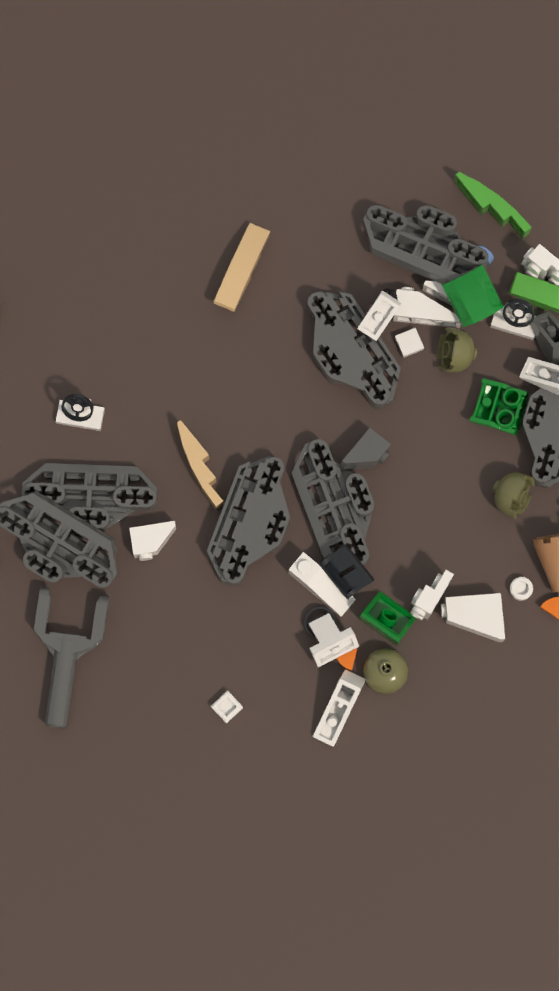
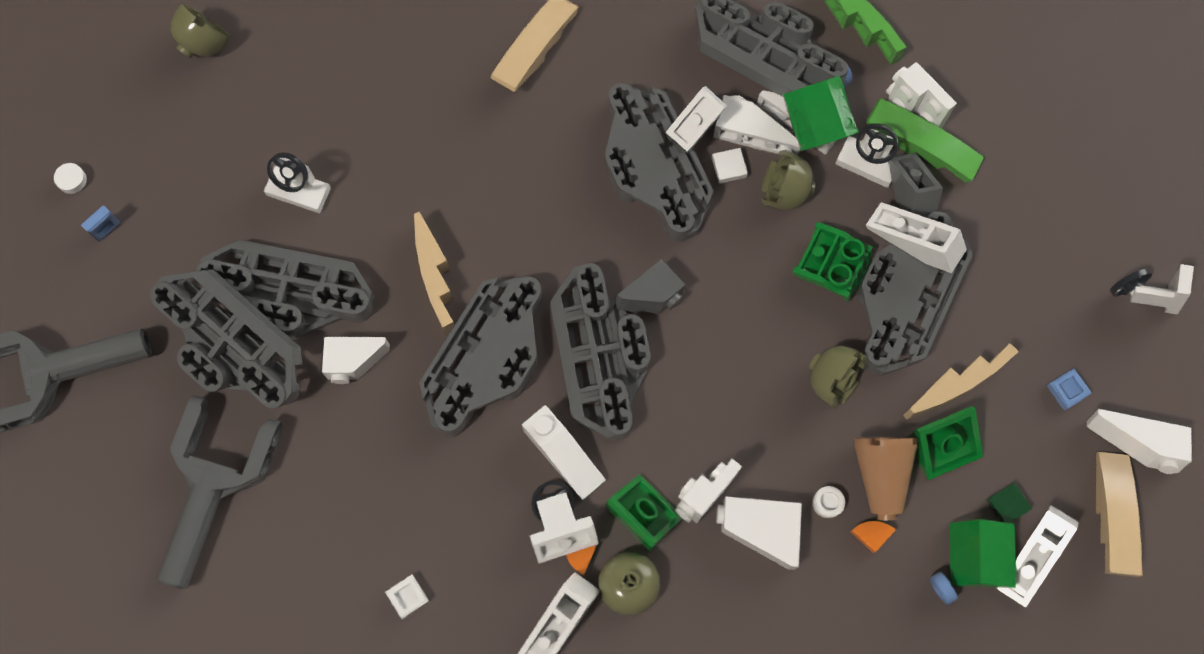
camera: 10 degrees right, 5 degrees down
(352, 580) = (604, 454): black piece -> none

